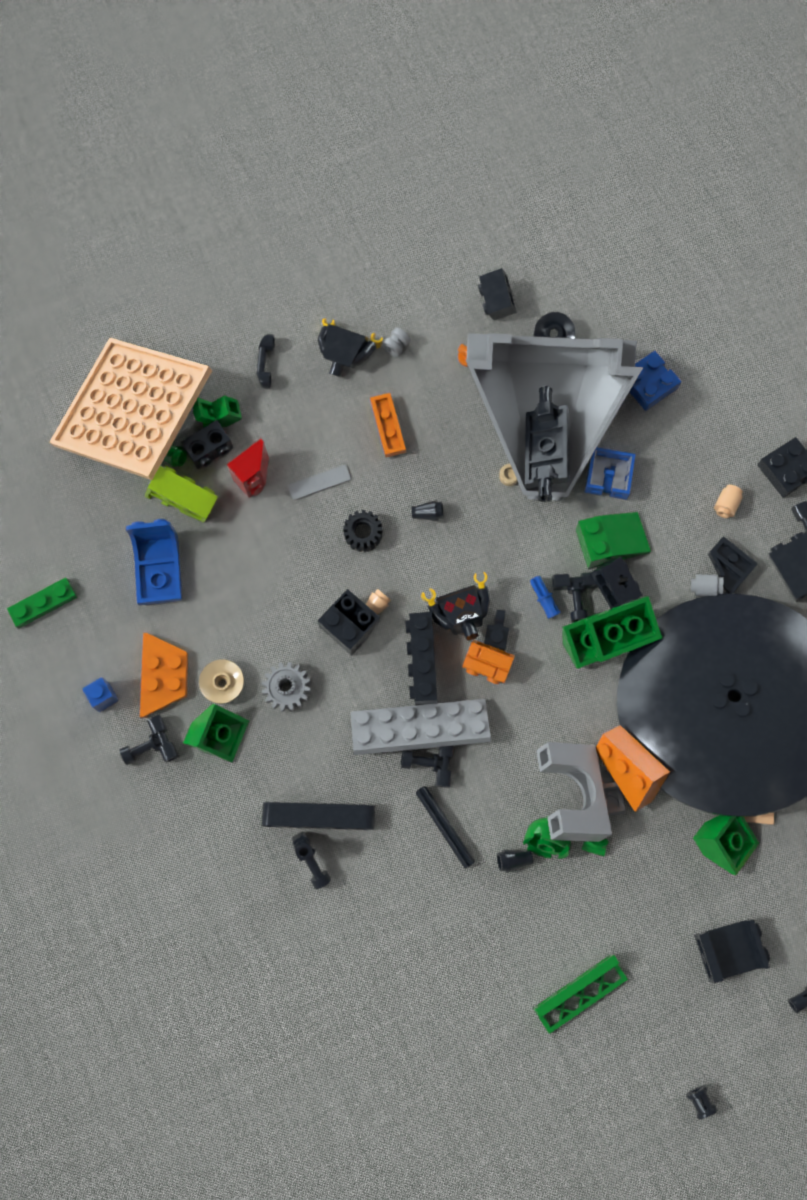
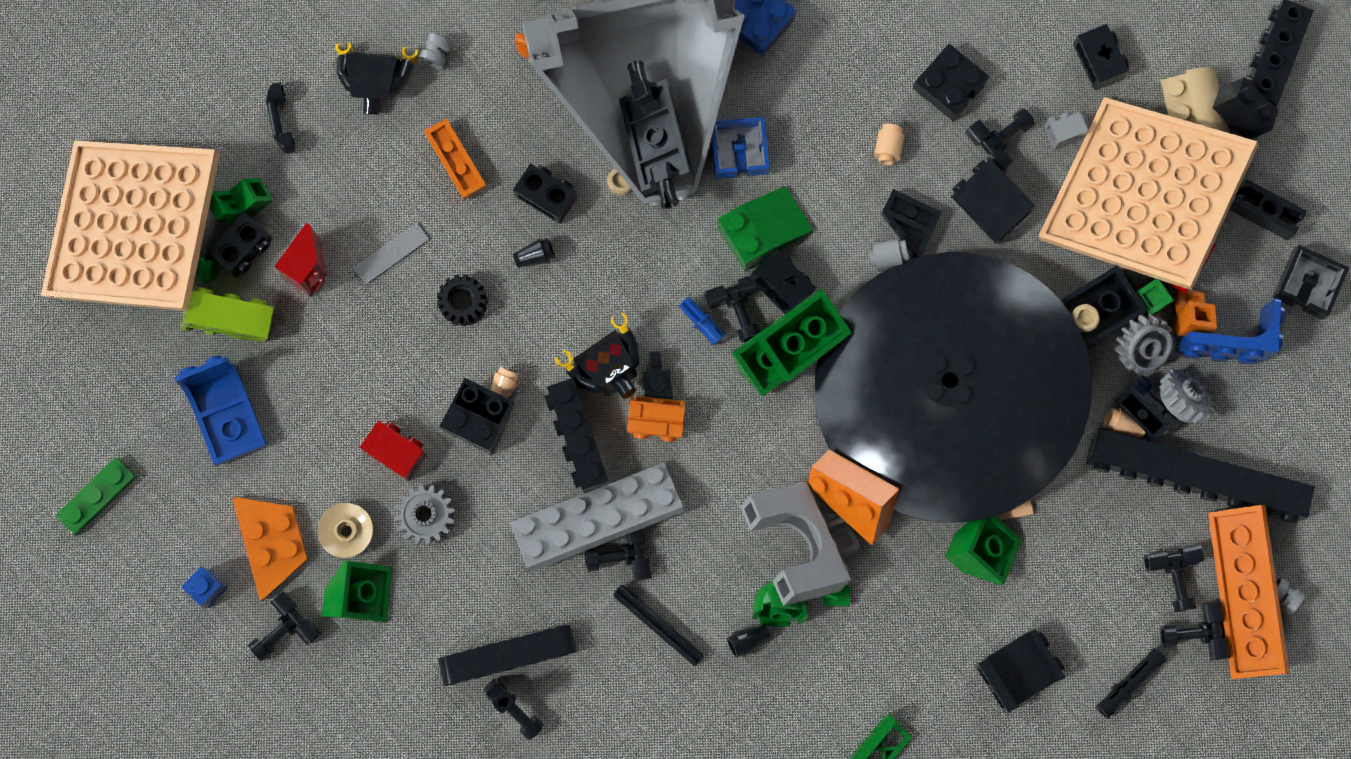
camera: 20 degrees left, 5 degrees up
(277, 630) = (393, 450): none -> red brick
(445, 470) = (541, 198): none -> black brick

